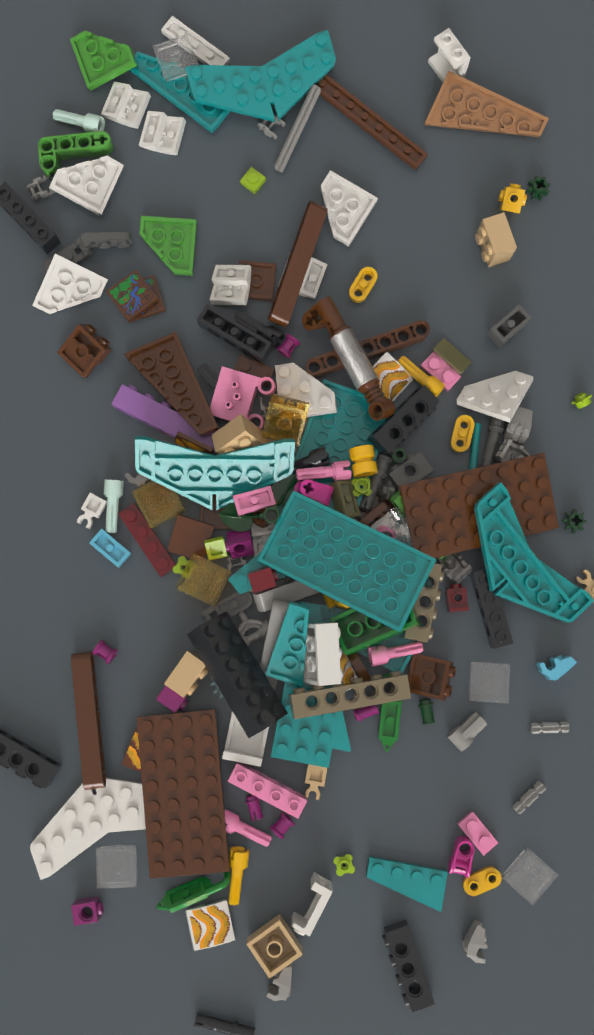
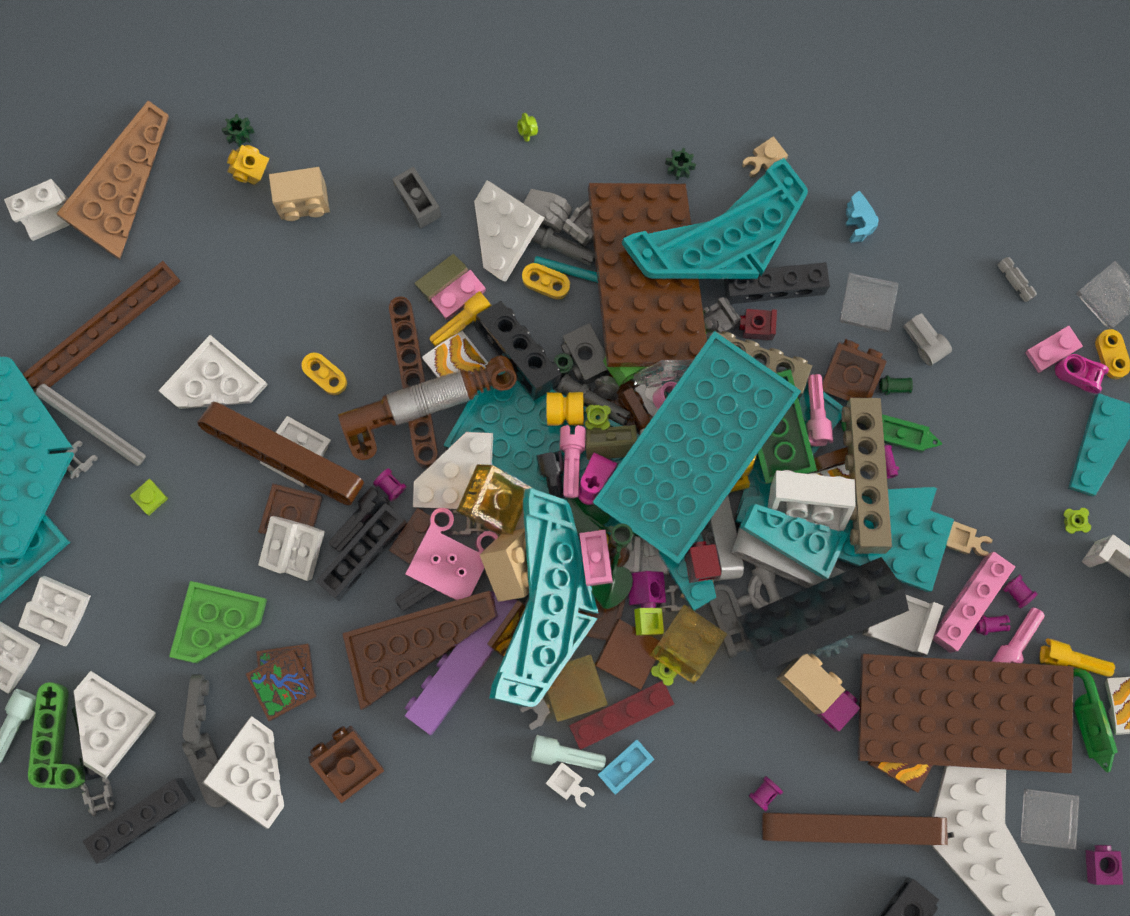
camera: 85 degrees left, 5 degrees down
(549, 727) = (933, 240): light grey axle -> none

